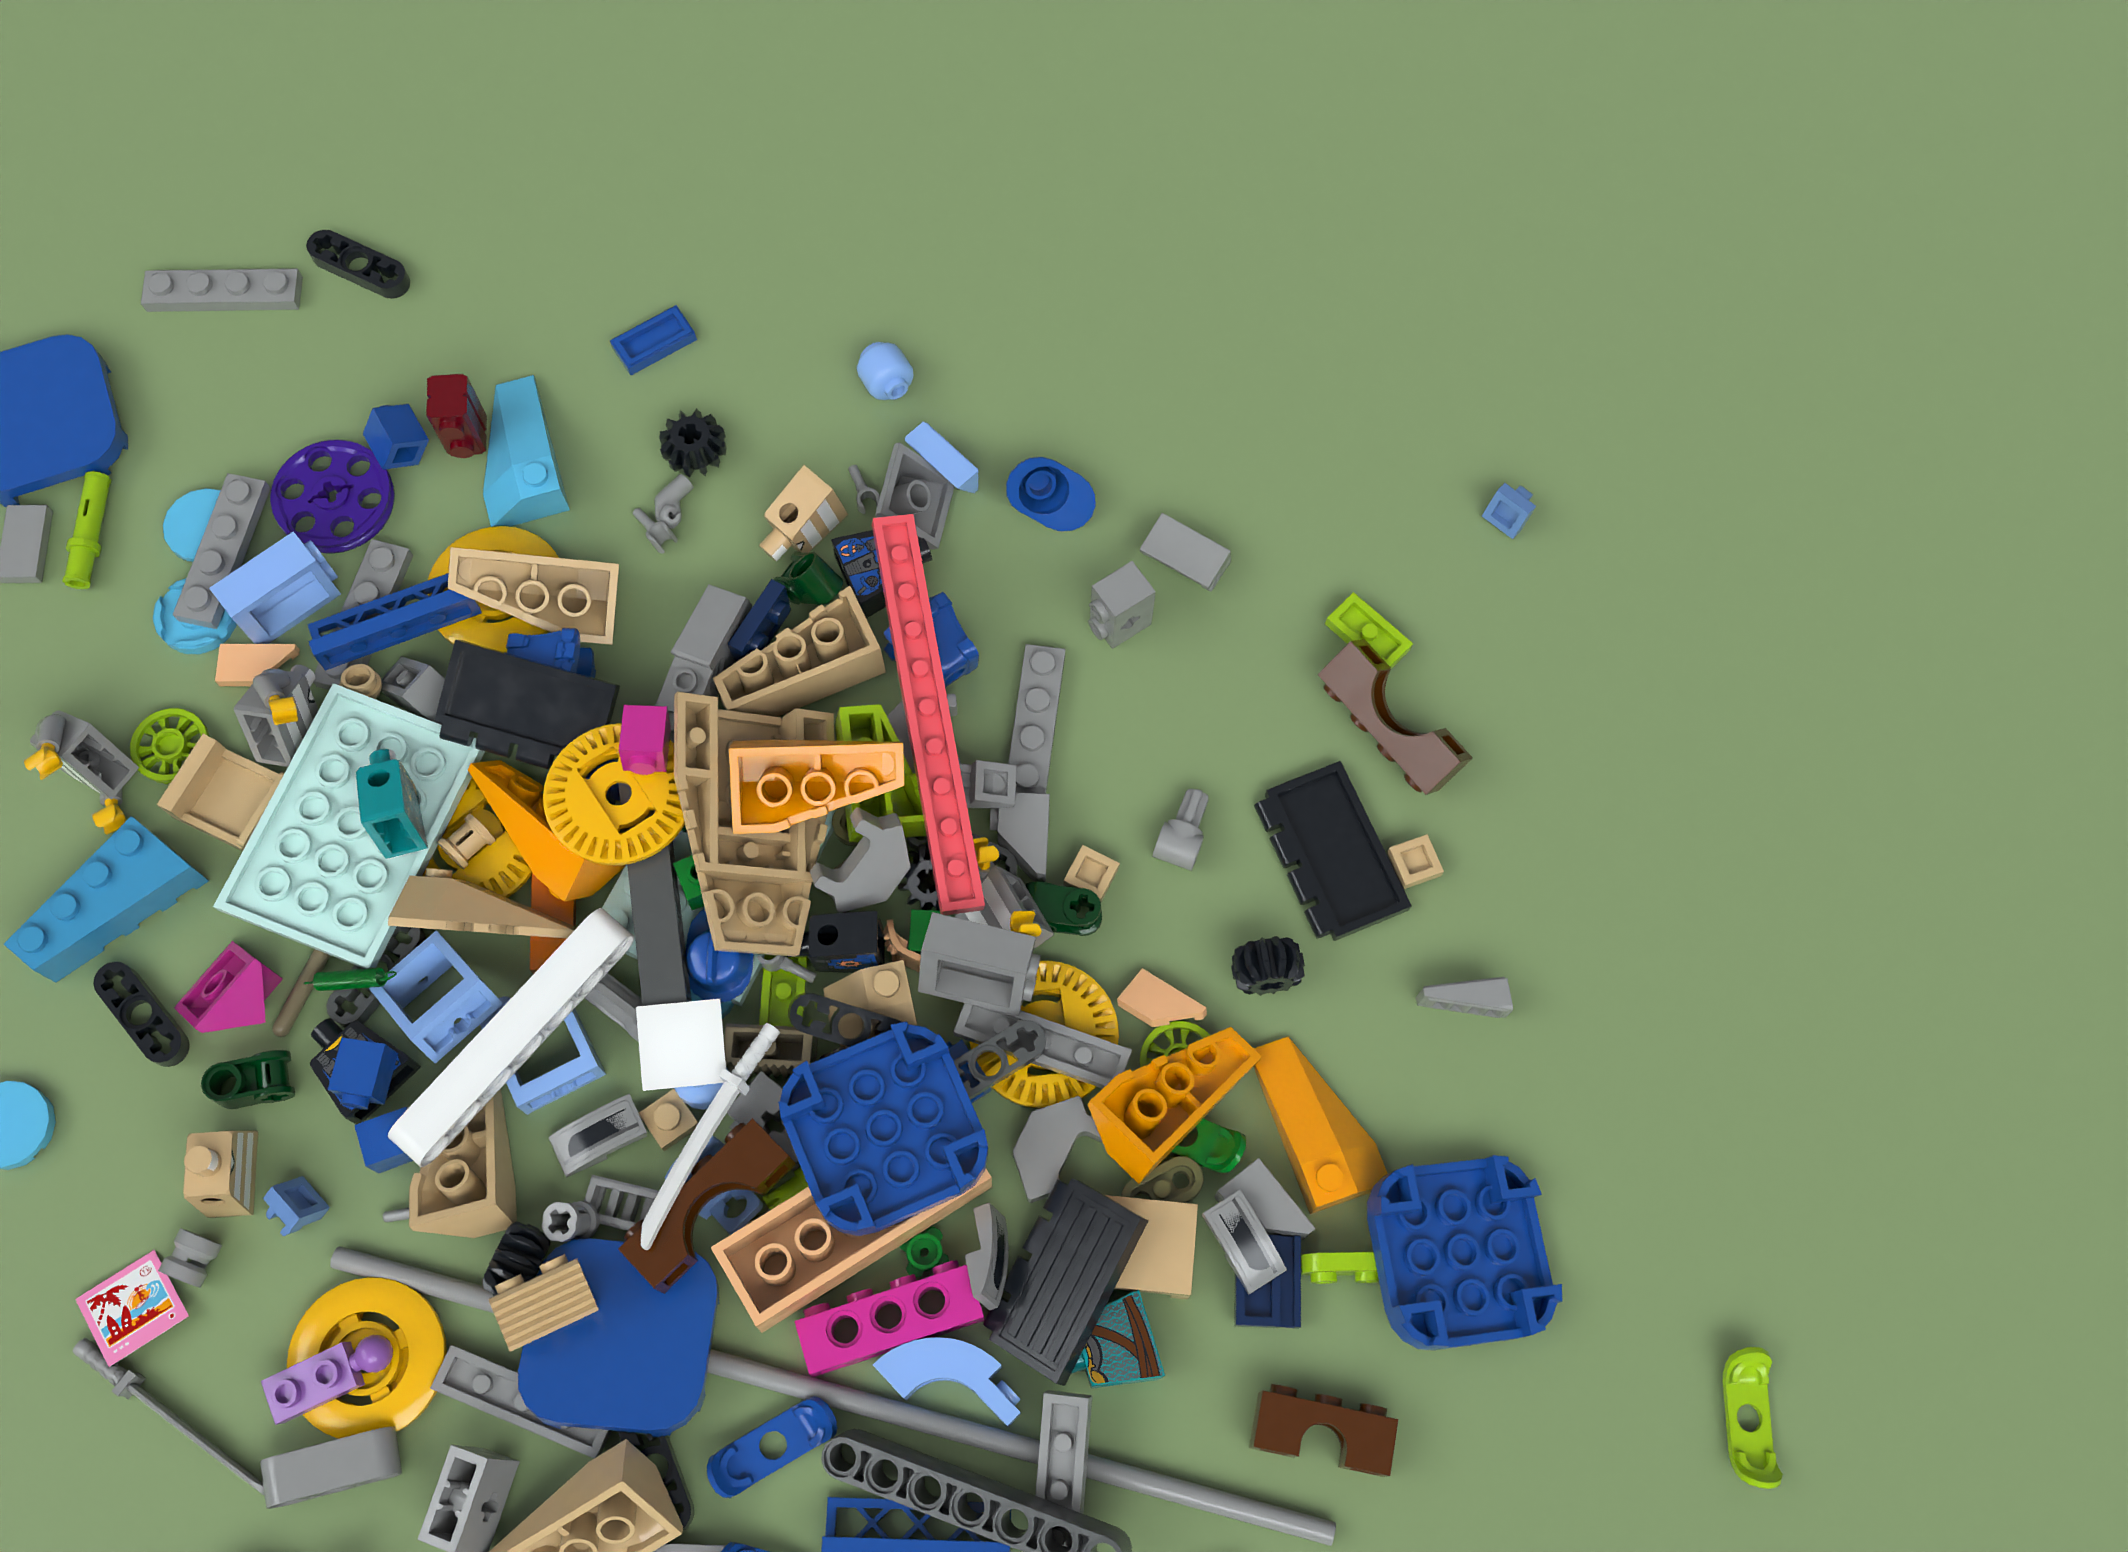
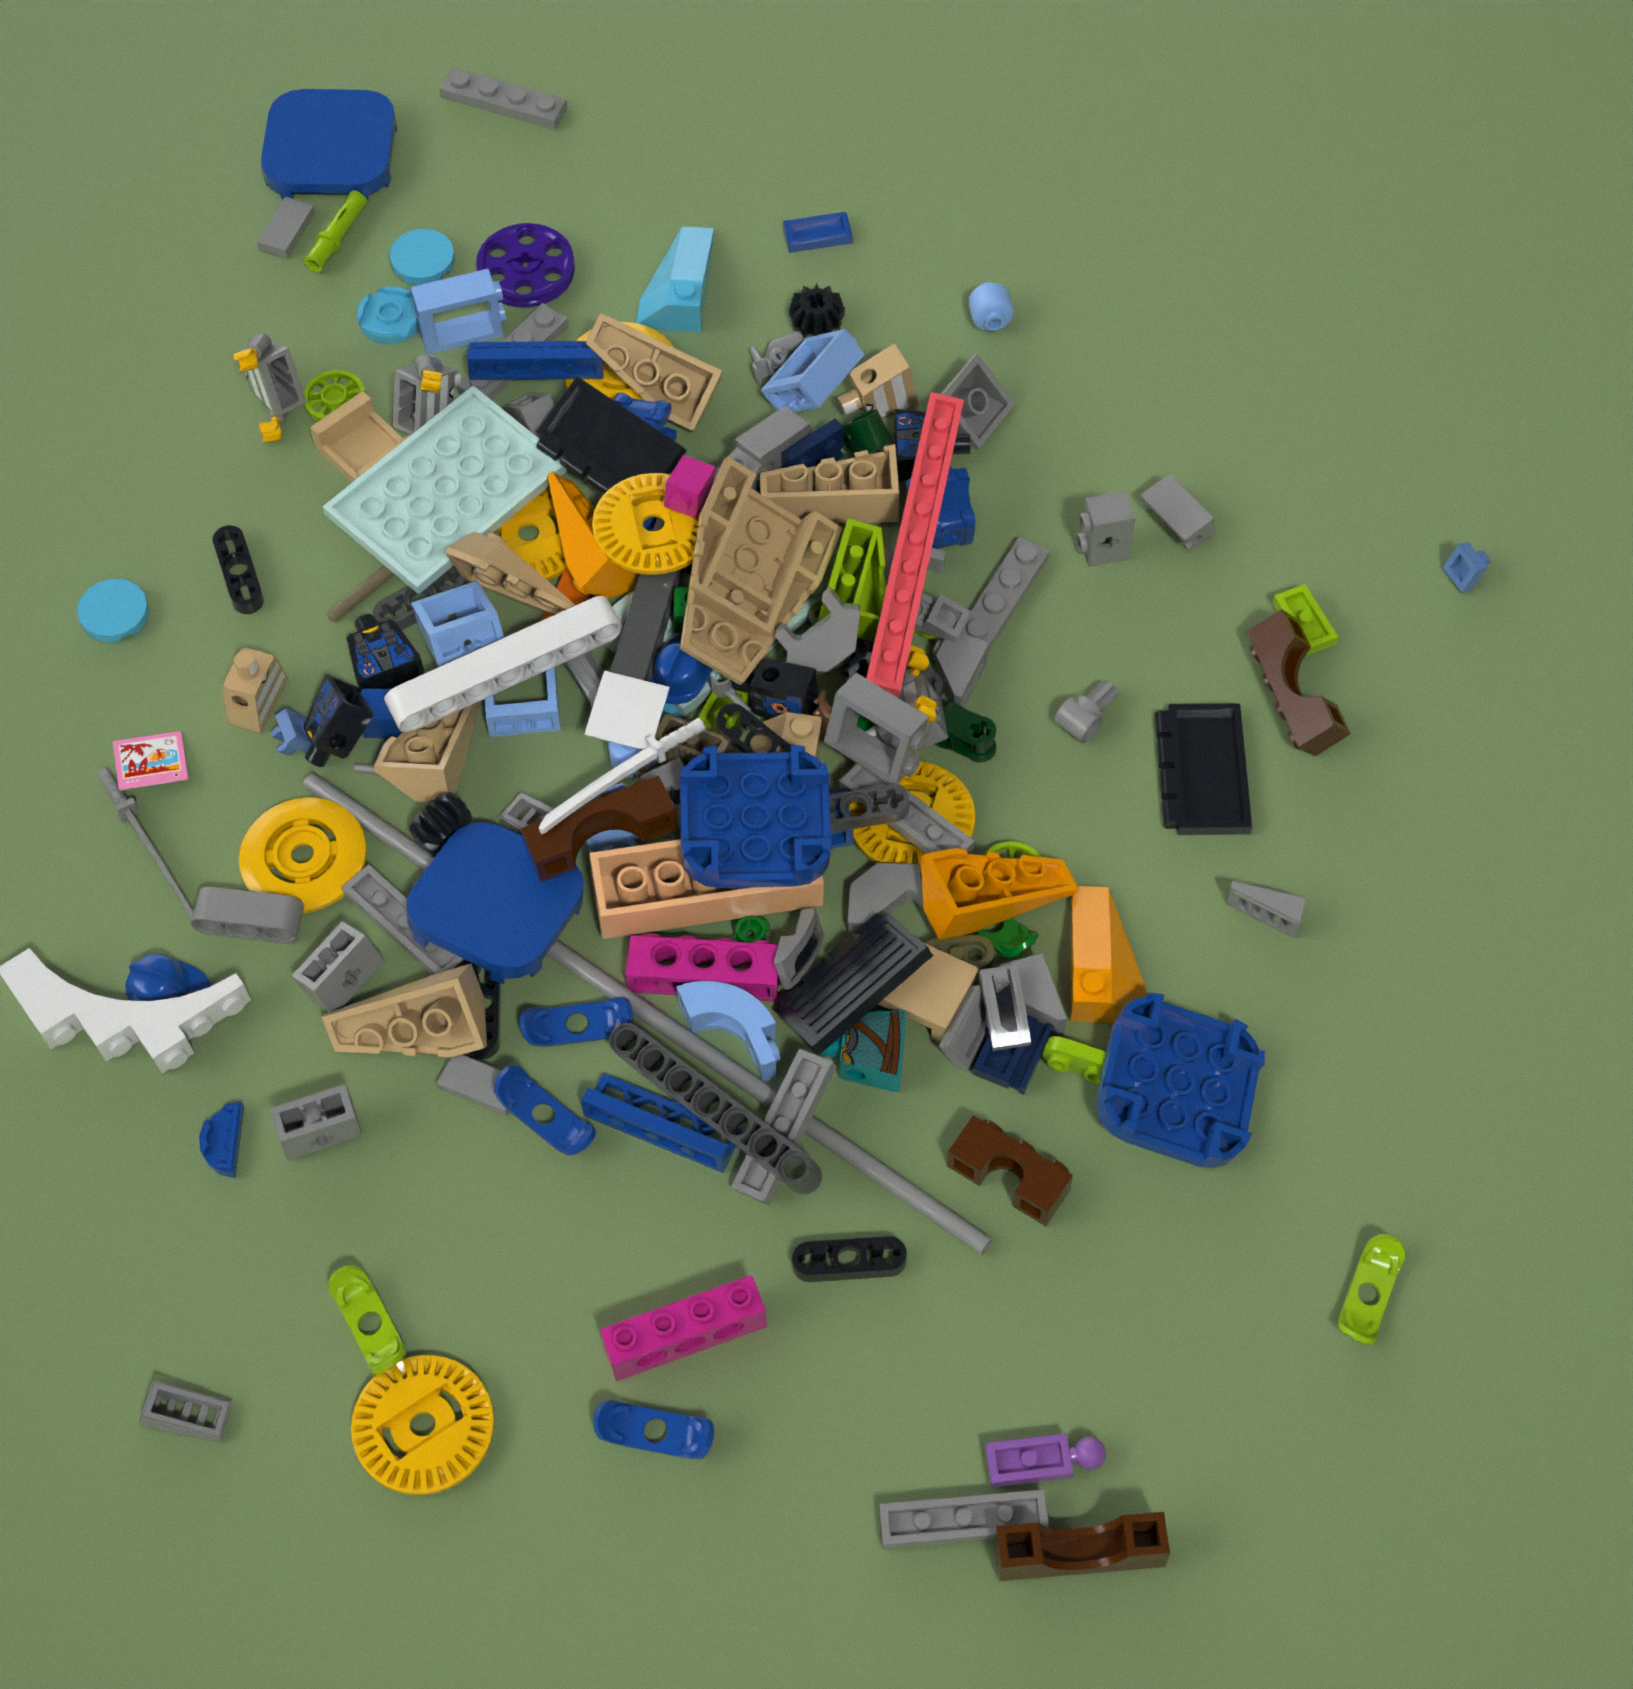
camera: 25 degrees right, 10 degrees down
(103, 900) = (244, 482): dark azure wedge -> none
(194, 1247) = (206, 740): light grey wheel -> none
(221, 548) = (434, 265): light grey plate -> none
(229, 992) = (312, 573): dark pink slope -> none
(243, 662) = (407, 352): light nougat tile -> none
(258, 1080) = (300, 638): dark green piece -> none
(324, 1377) = (268, 850): medium lavender plate -> none
(339, 1177) = (335, 720): none -> black torso
(350, 979) = (399, 591): green piece -> none
(362, 679) = (496, 392): tan plate -> none
(362, 1072) = (384, 650): blue brick -> none
(366, 277) = (615, 122): black beam -> none
(390, 805) = (478, 461): teal torso -> none
(395, 436) = (590, 236): blue brick -> none
(456, 415) = (643, 233): dark red brick -> none
(466, 841) = (525, 527): tan bush -> none
(542, 1303) = (450, 844): tan brick -> none
(570, 1220) = (489, 807): light grey bush -> none
(597, 1135) = (536, 763): light grey slope -> none
(668, 1119) = (591, 769): tan plate -> none
(721, 525) = (813, 371): none -> light blue window
(804, 779) = (793, 554): light orange wedge -> none
(862, 489) = (936, 379): light grey hand -> none
(943, 457) = (1011, 381): light blue slope -> none
(1051, 494) = (1085, 433): blue piece -> none
(1091, 872) = (1003, 714): tan plate -> none
(1157, 1001) = (1011, 822): light nougat tile -> none
(1209, 1279) = (966, 1030): none -> light grey tile
(1268, 965) = (1111, 824): black gear -> none
(1415, 861) = (1269, 796): tan plate -> none

